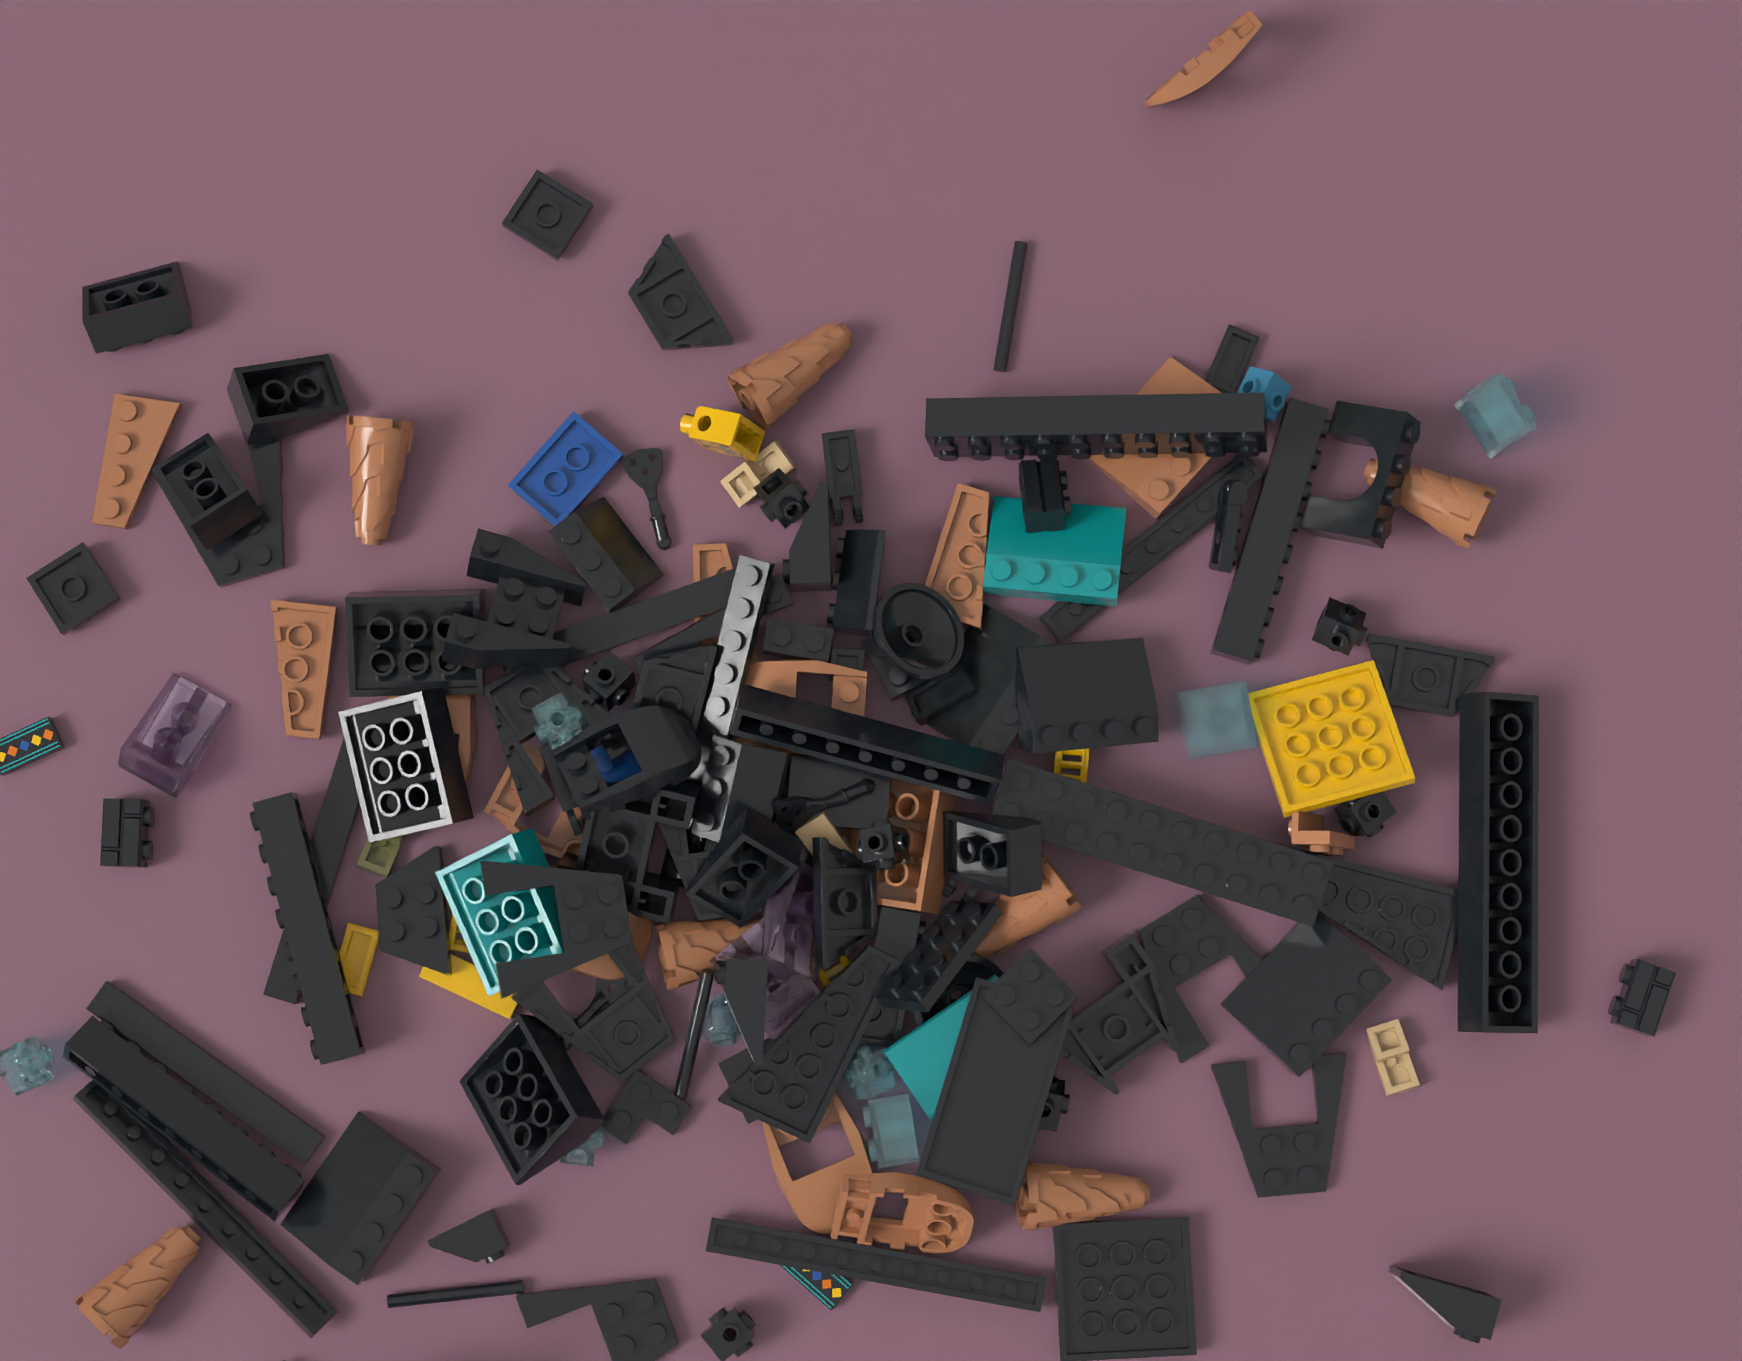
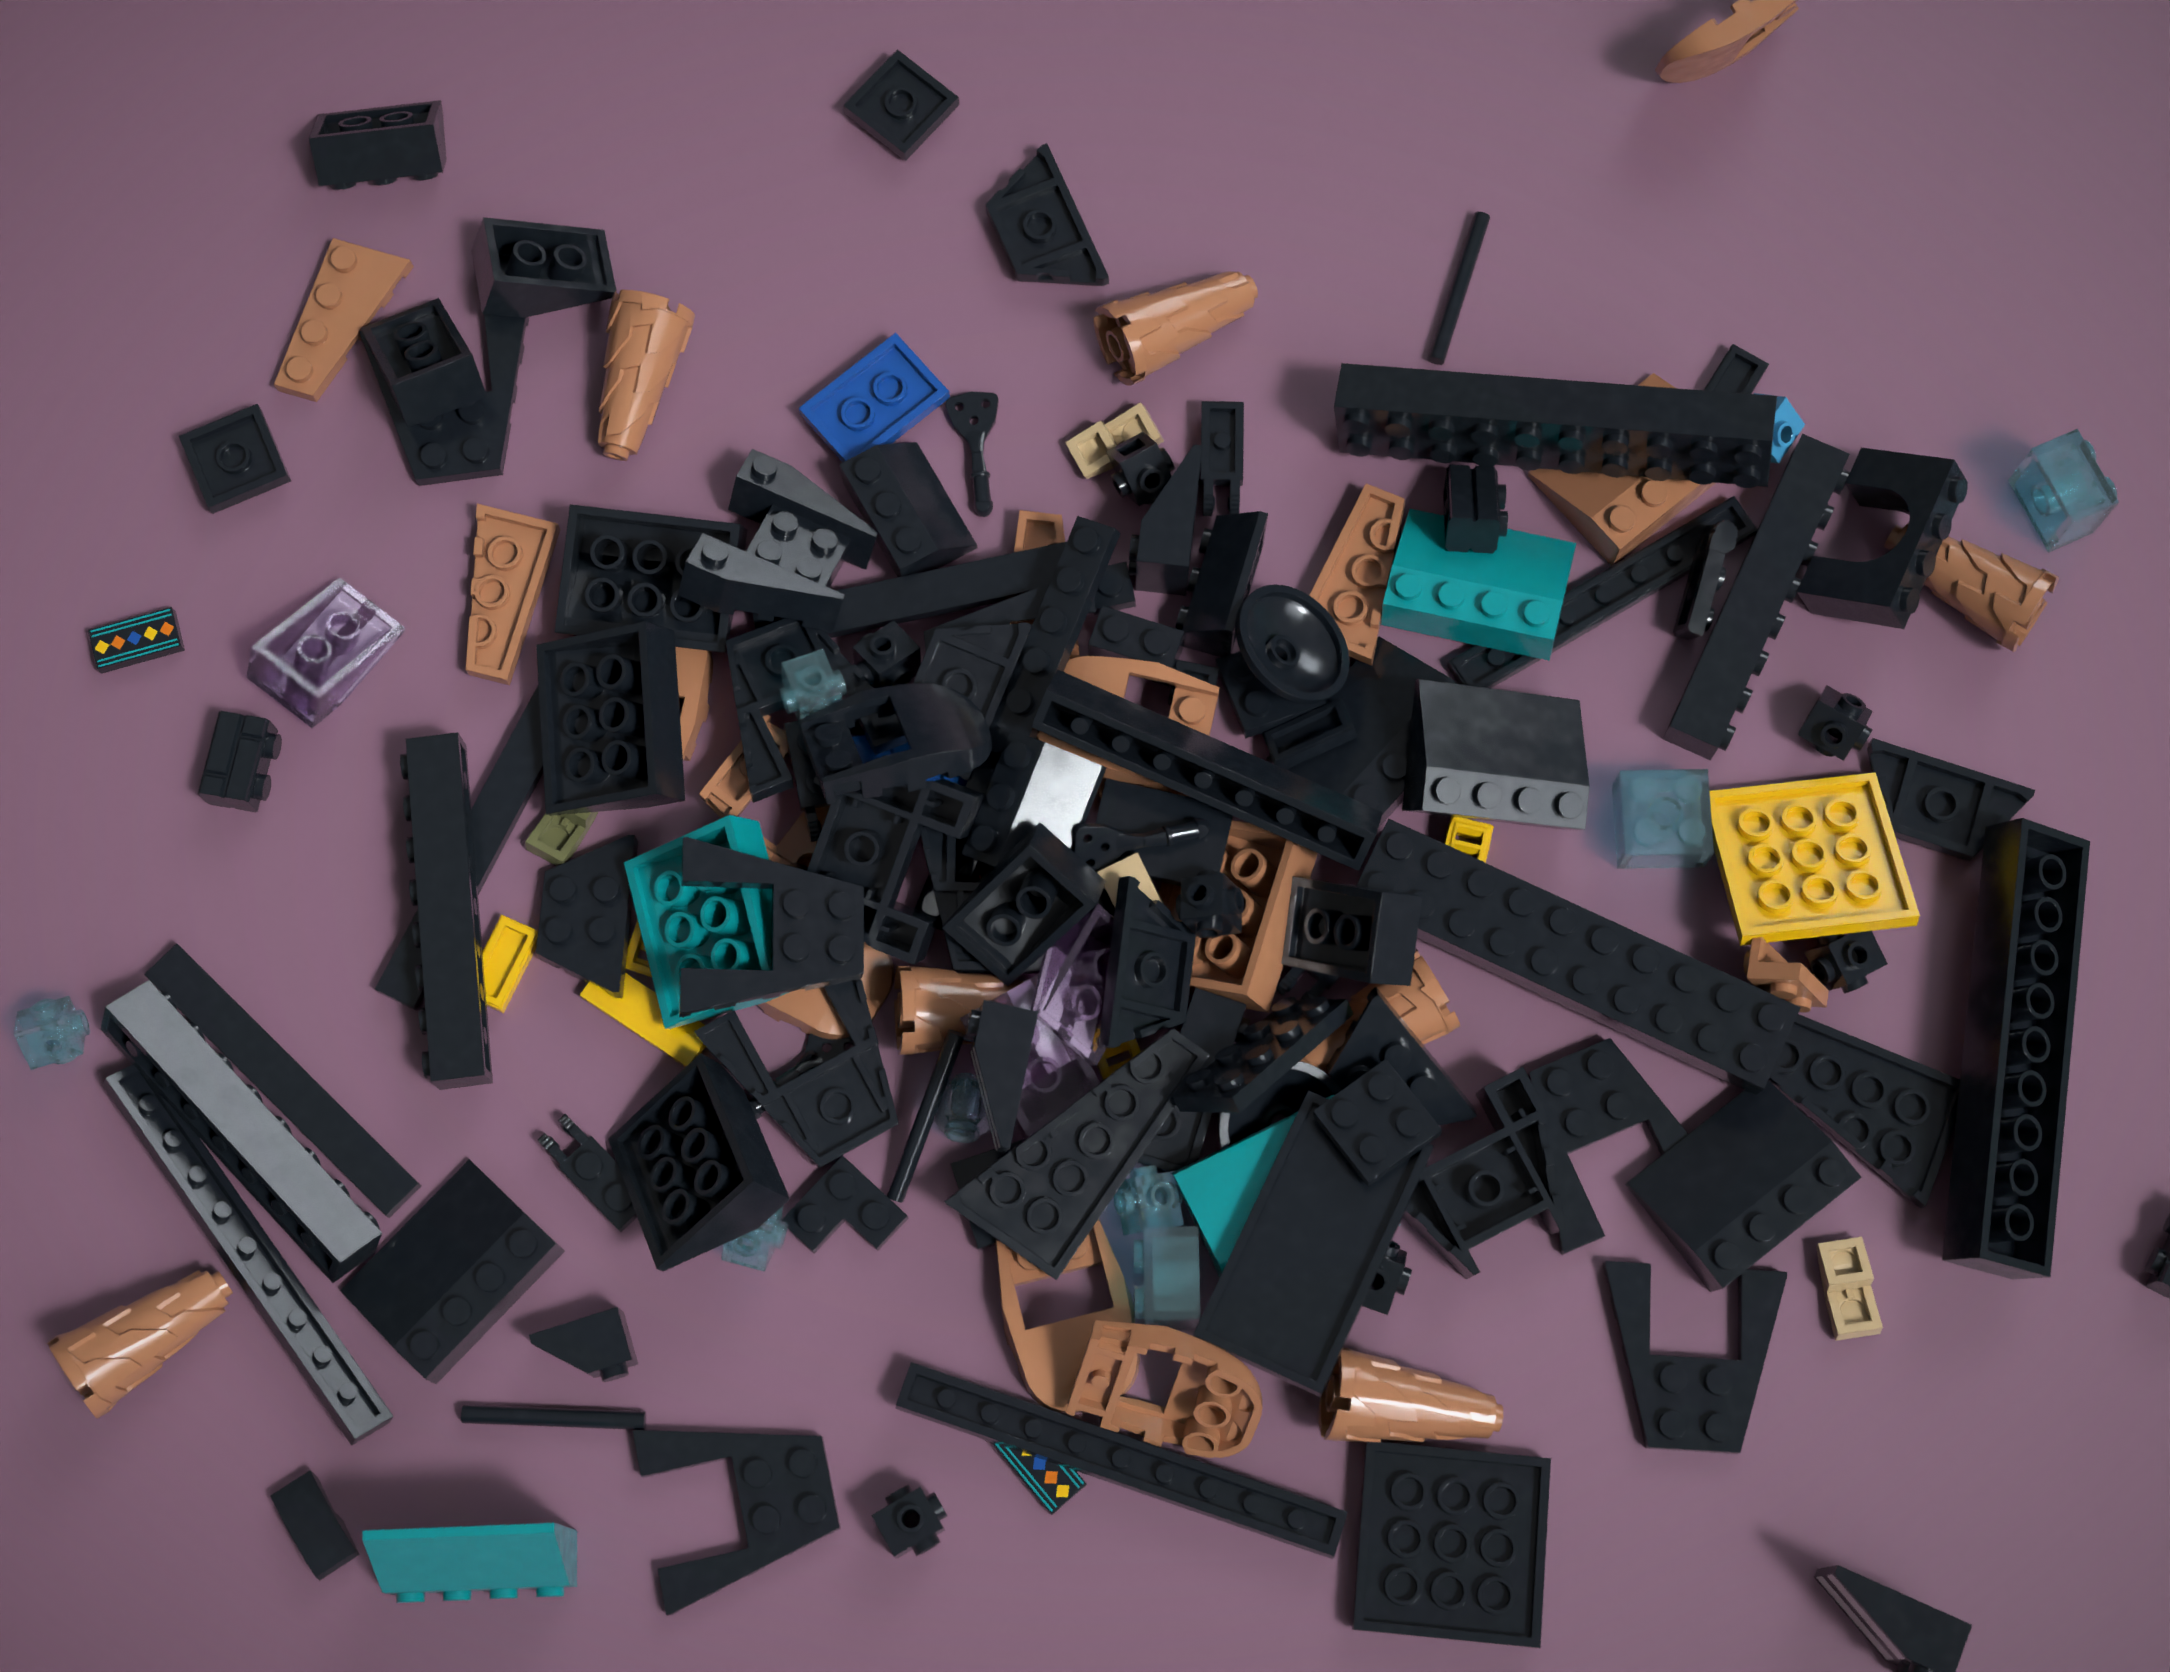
camera: 10 degrees right, 10 degrees down
(451, 1108) = (594, 1174): none -> black hinge
(723, 432) = (1080, 380): yellow torso -> none
(1029, 929) = (1385, 1035): none -> black wing

